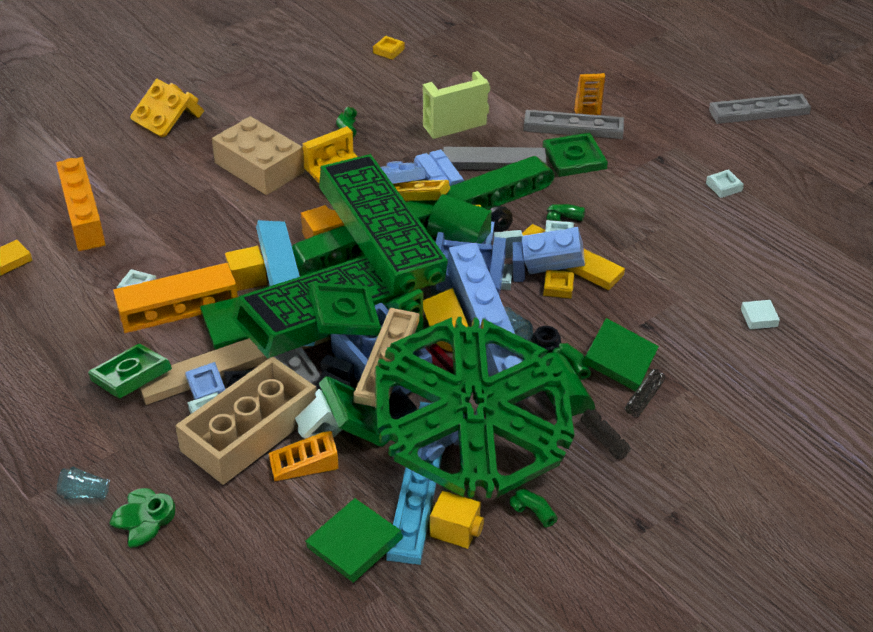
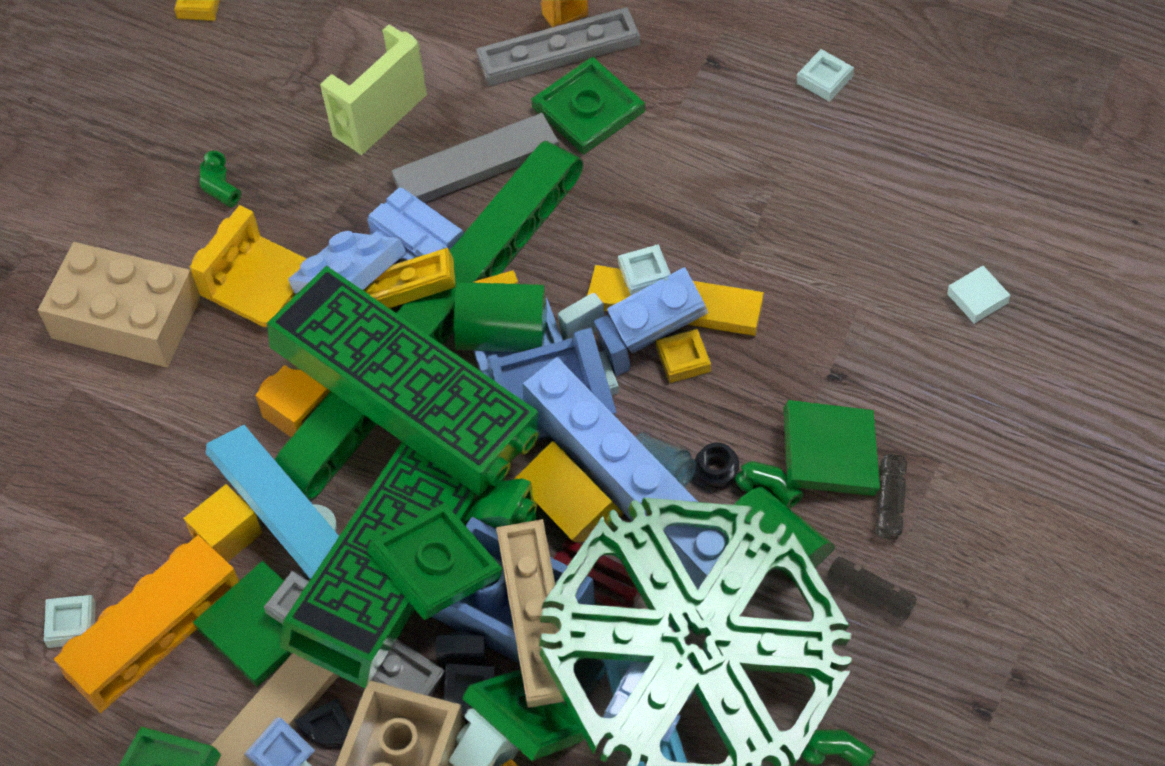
camera: 20 degrees left, 15 degrees up
(501, 212) = (546, 272): black plate -> none
(556, 211) = (629, 218): green arm -> none

